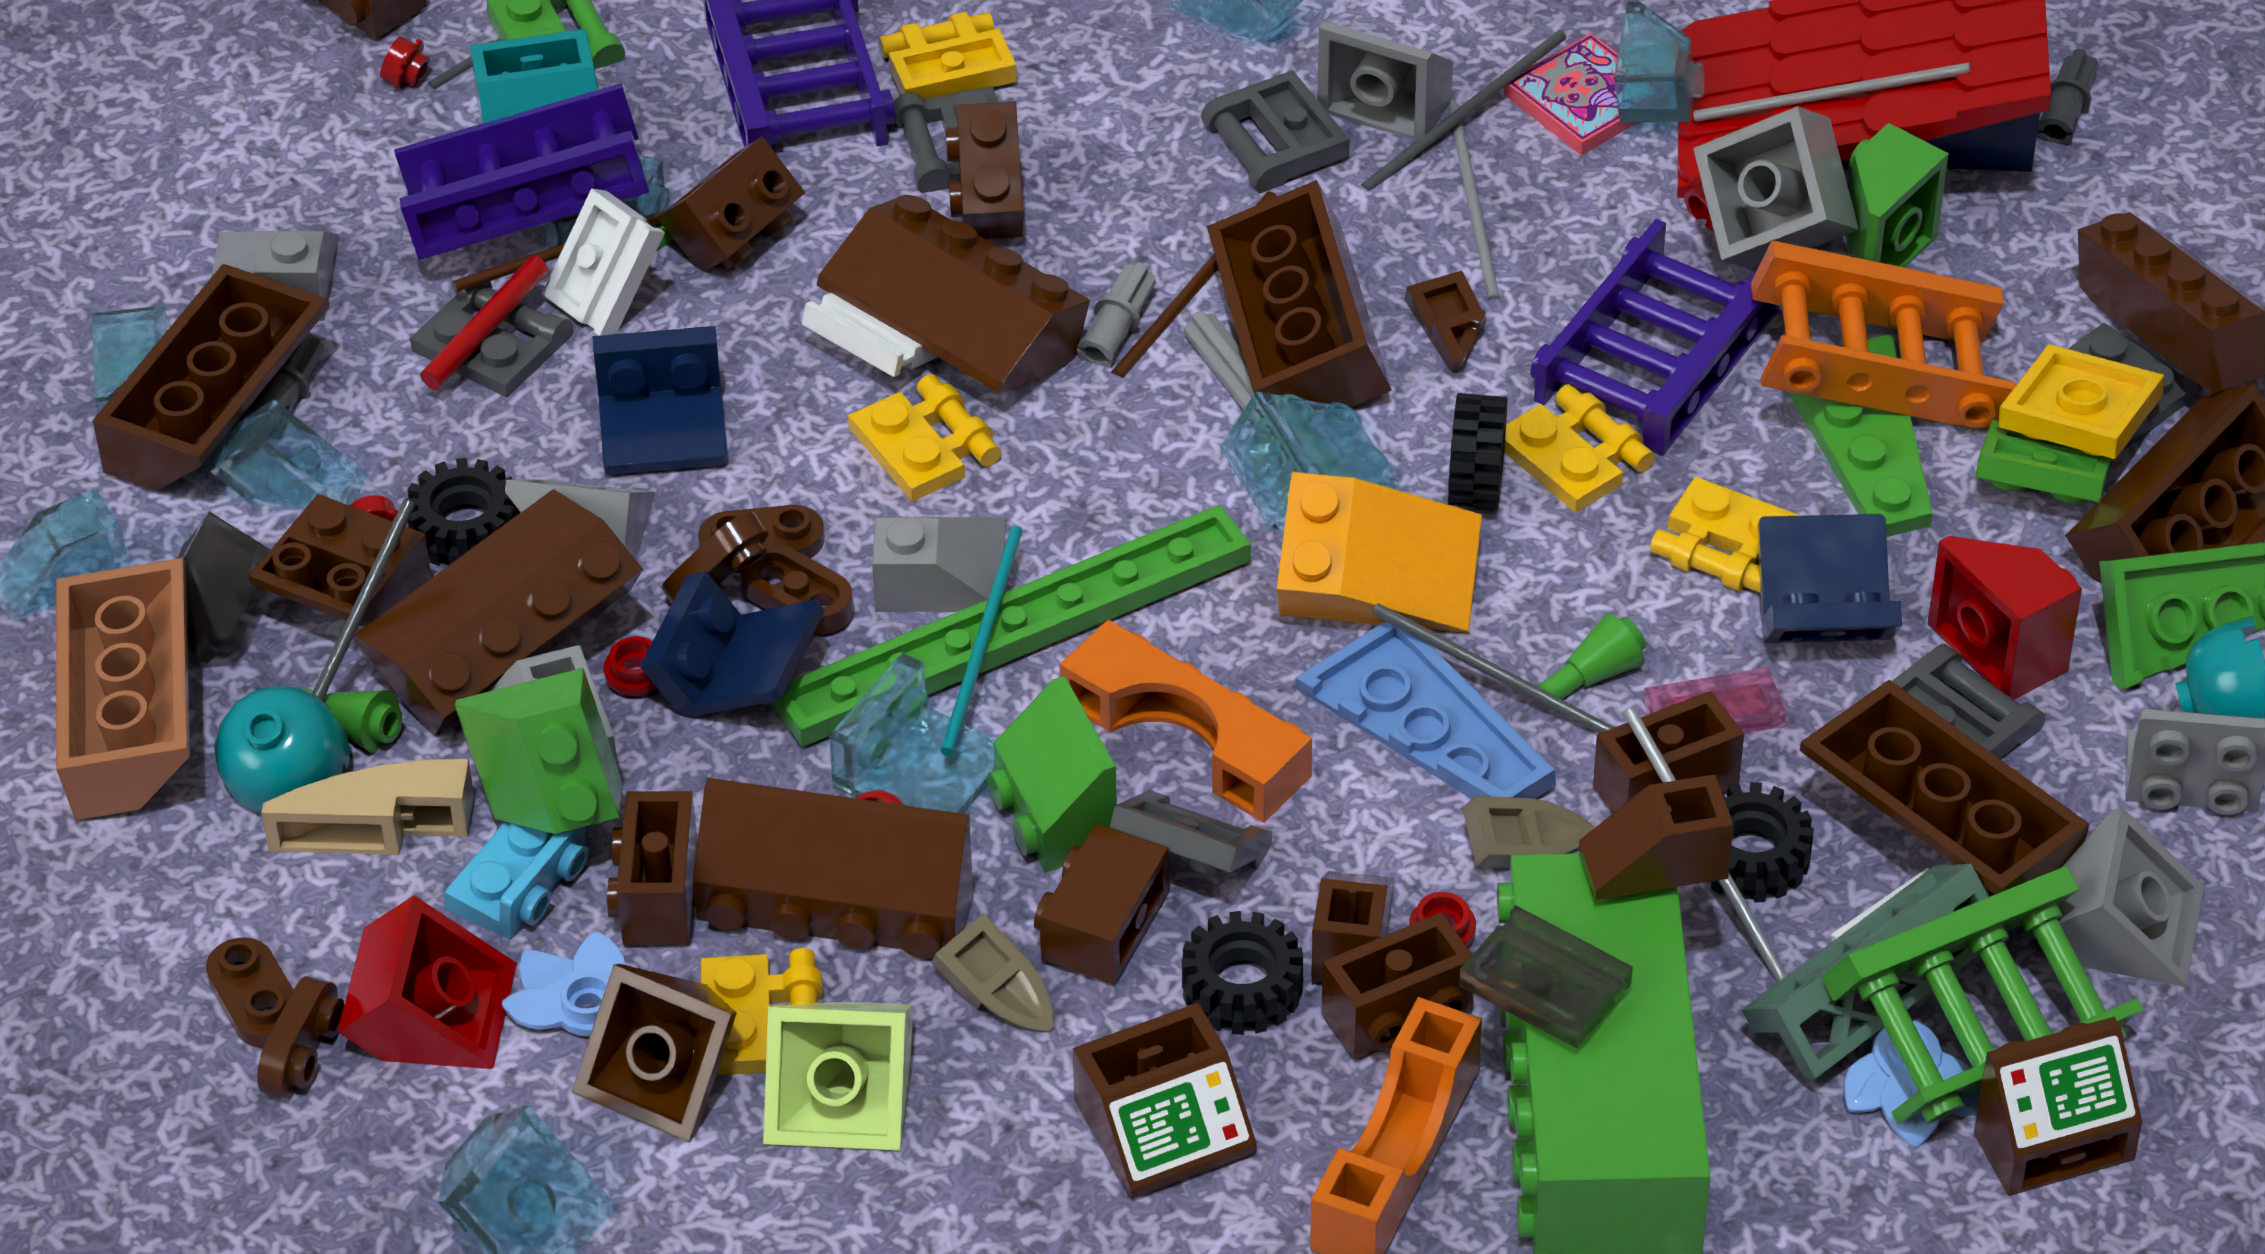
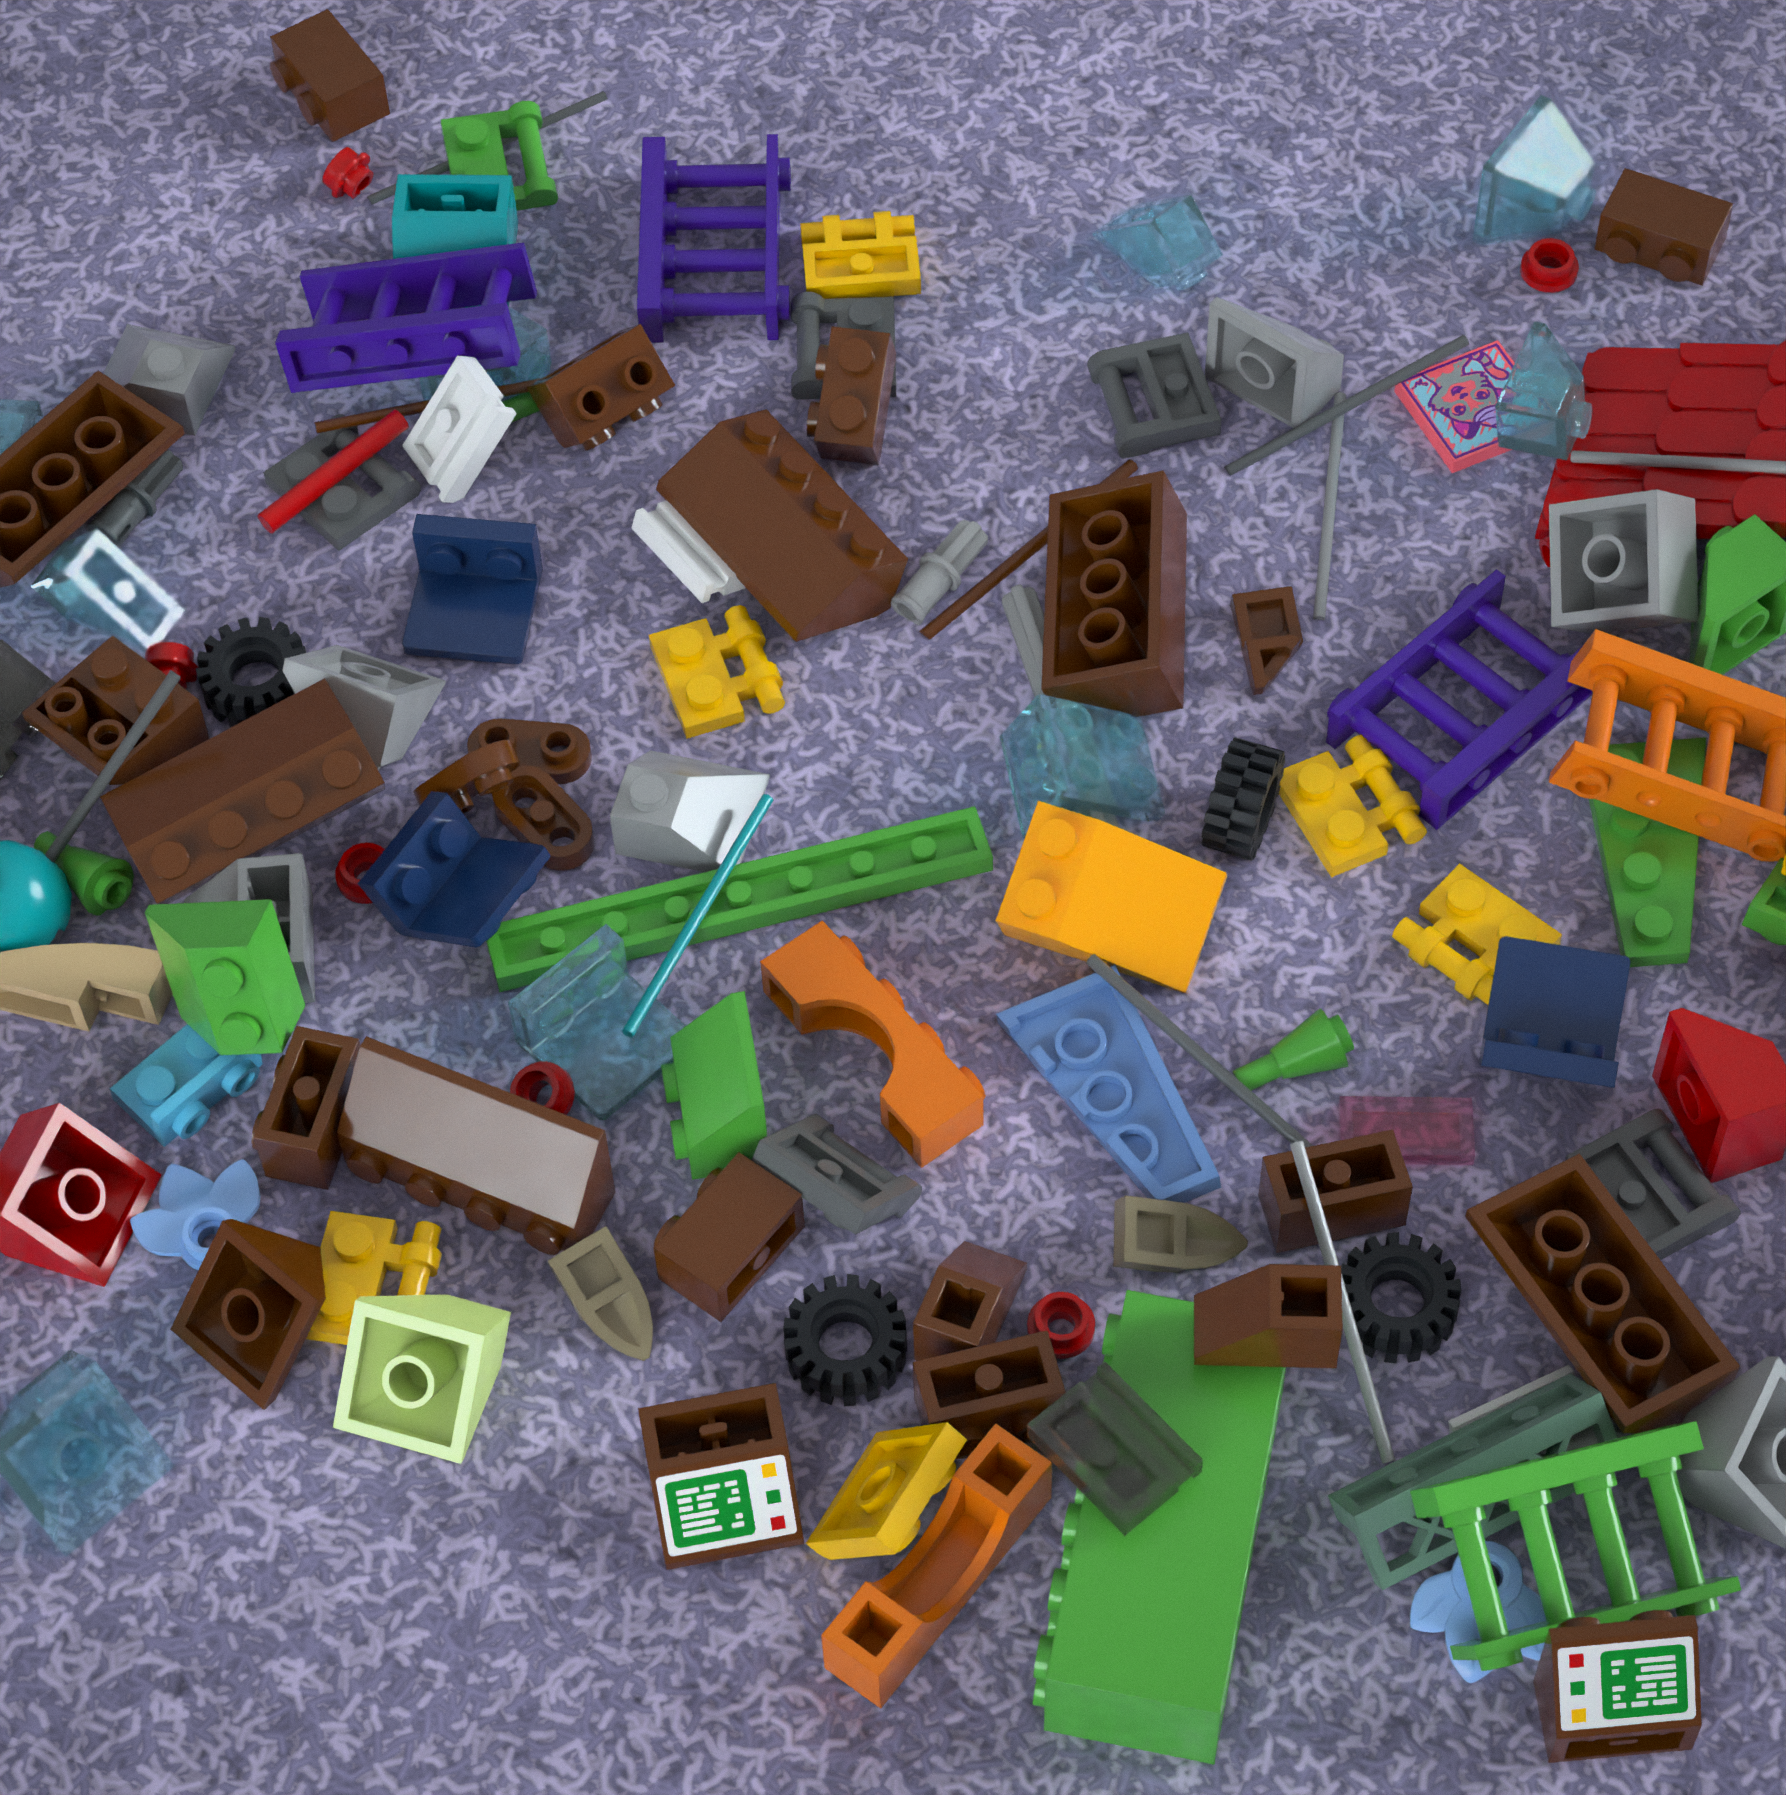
camera: 15 degrees right, 10 degrees up
(1329, 1081) = (887, 1492): none -> yellow plate

